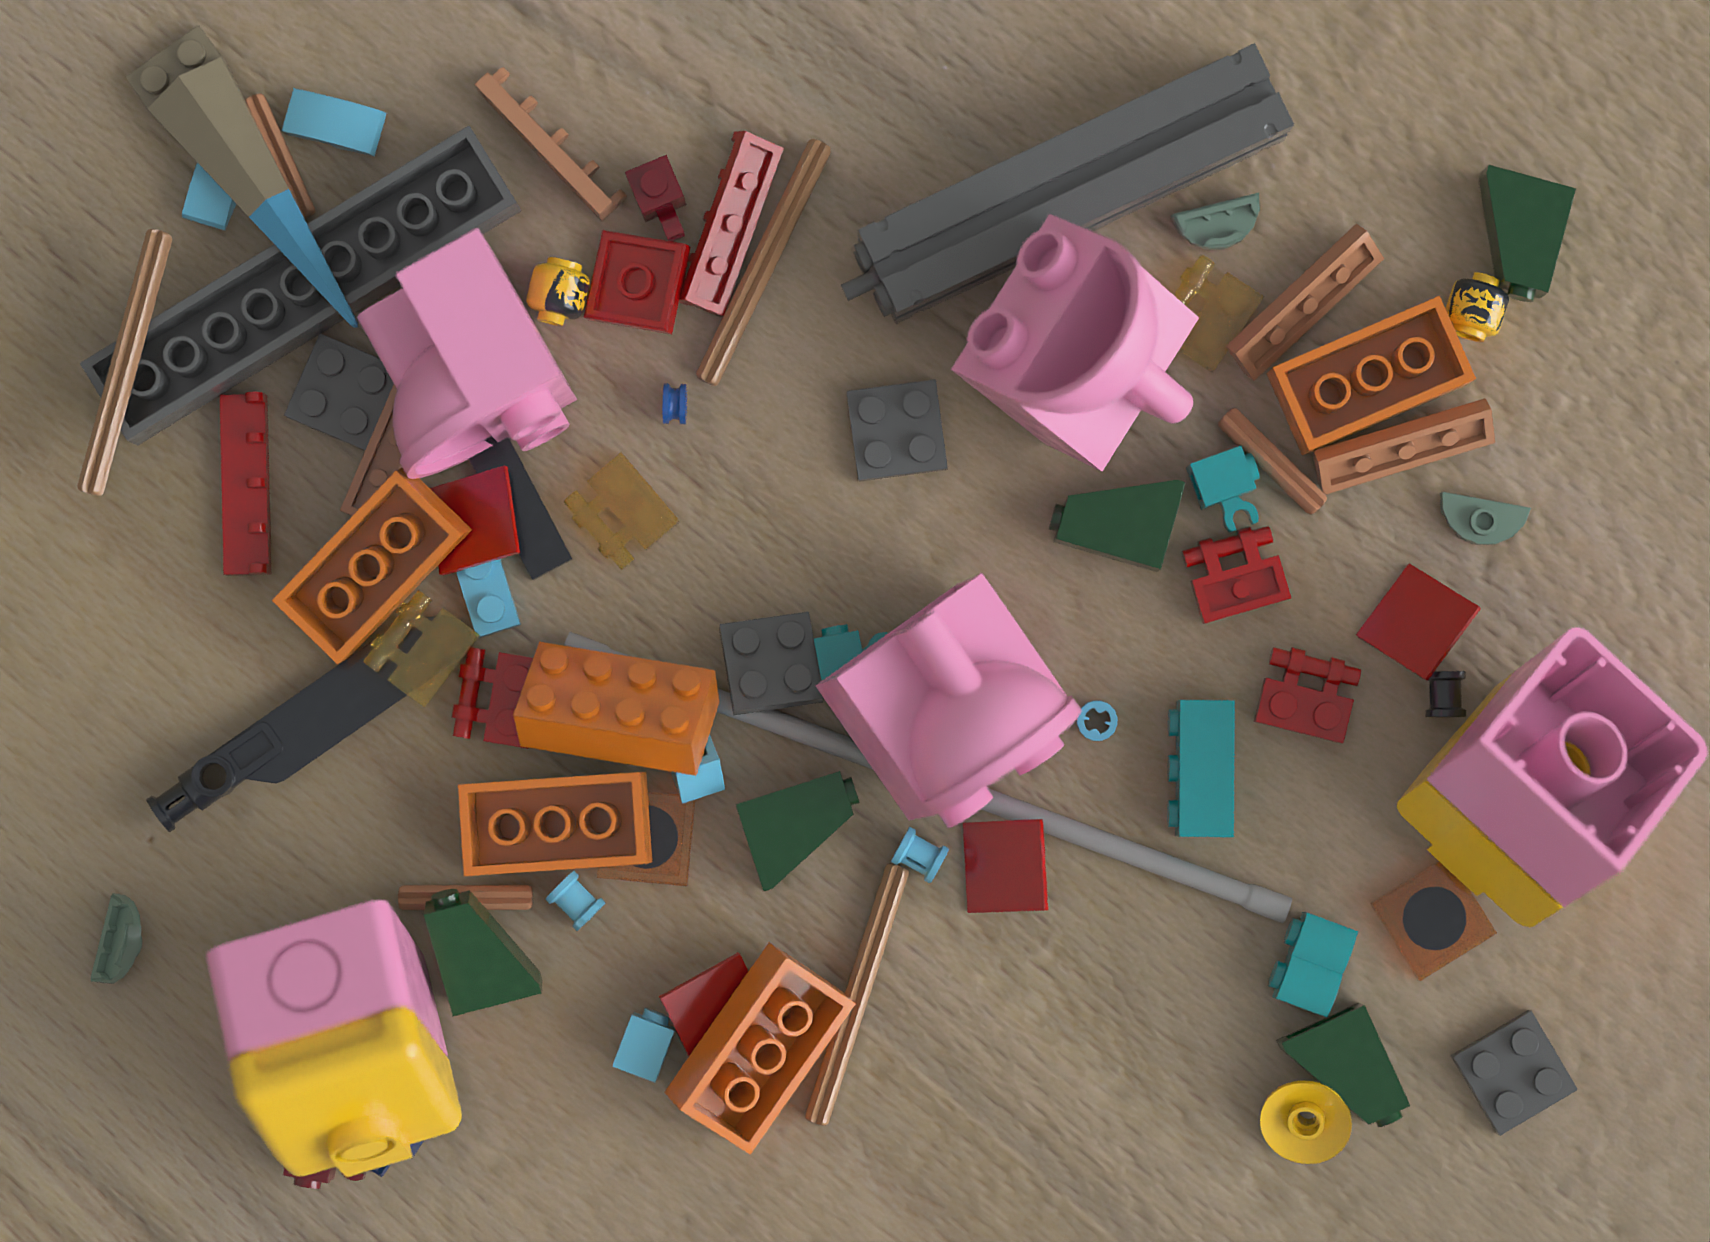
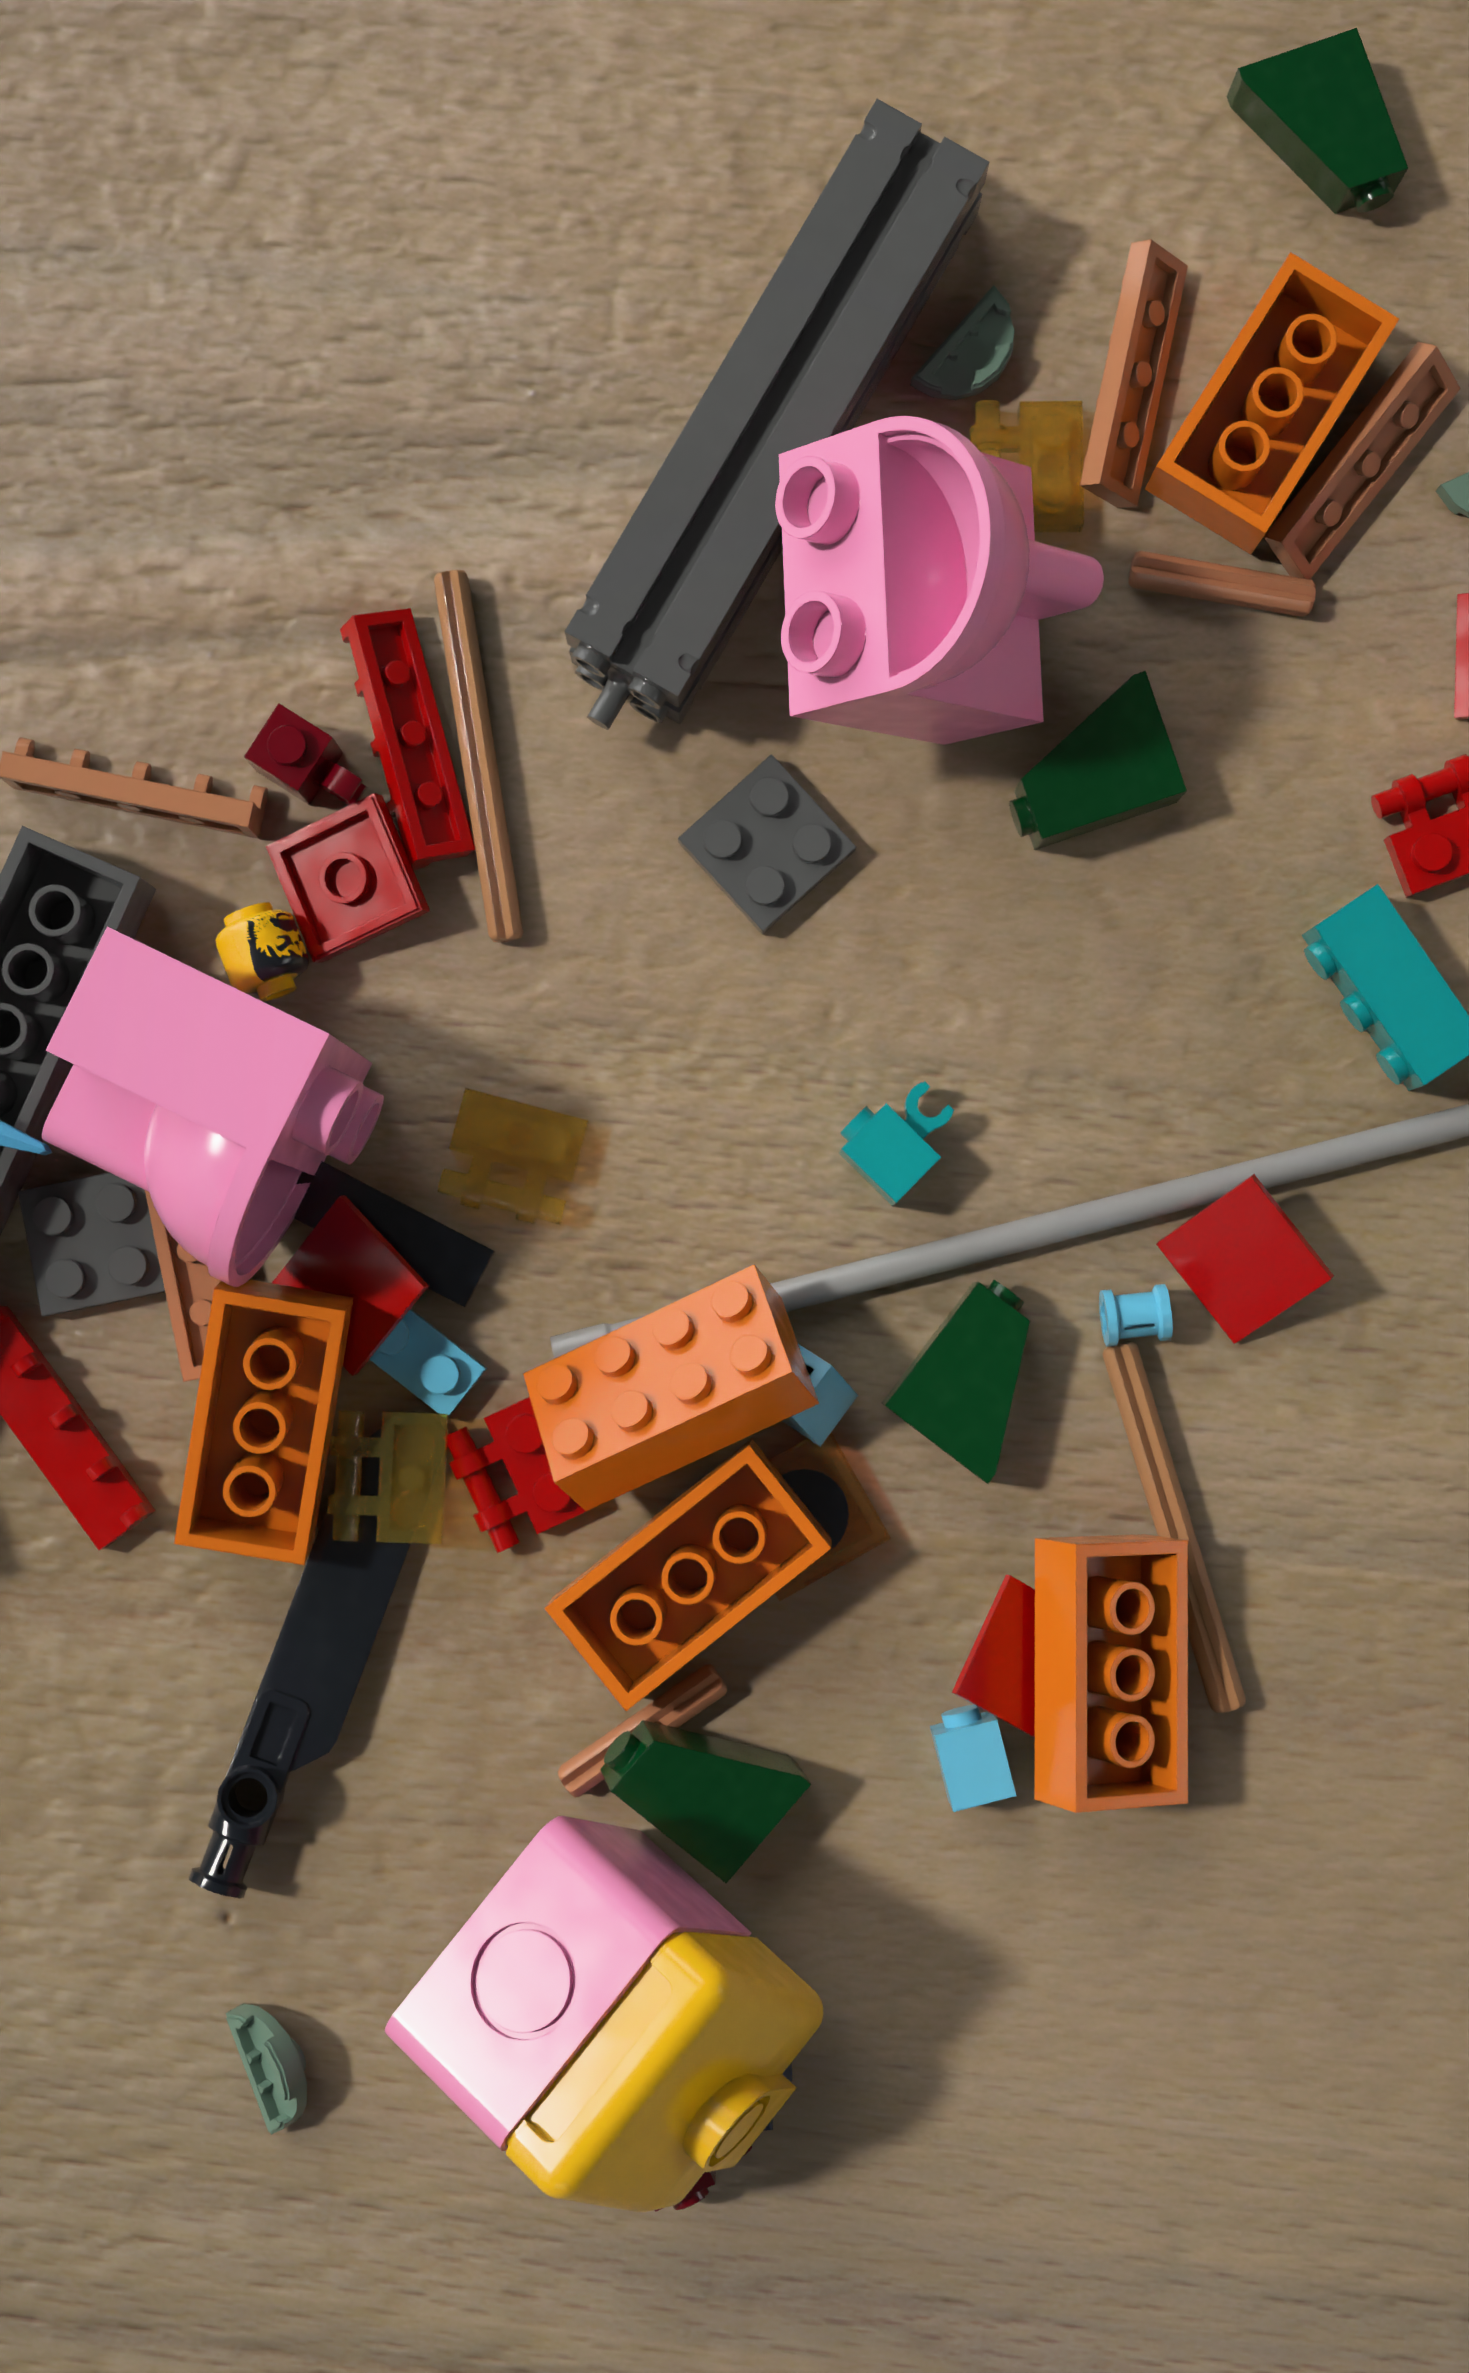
camera: 35 degrees left, 0 degrees up
(575, 900) = (774, 1646): medium azure bush -> none
(674, 403) = (488, 989): blue bush -> none
(770, 663) = (809, 1212): dark grey plate -> none
(951, 704) = (1061, 1112): bright pink piece -> none
(1094, 734) = (1220, 1002): medium azure bush -> none
(1222, 480) = (1184, 643): teal brick -> none
(1239, 588) = (1287, 755): red plate -> none
(1477, 307) = (1336, 241): yellow head -> none

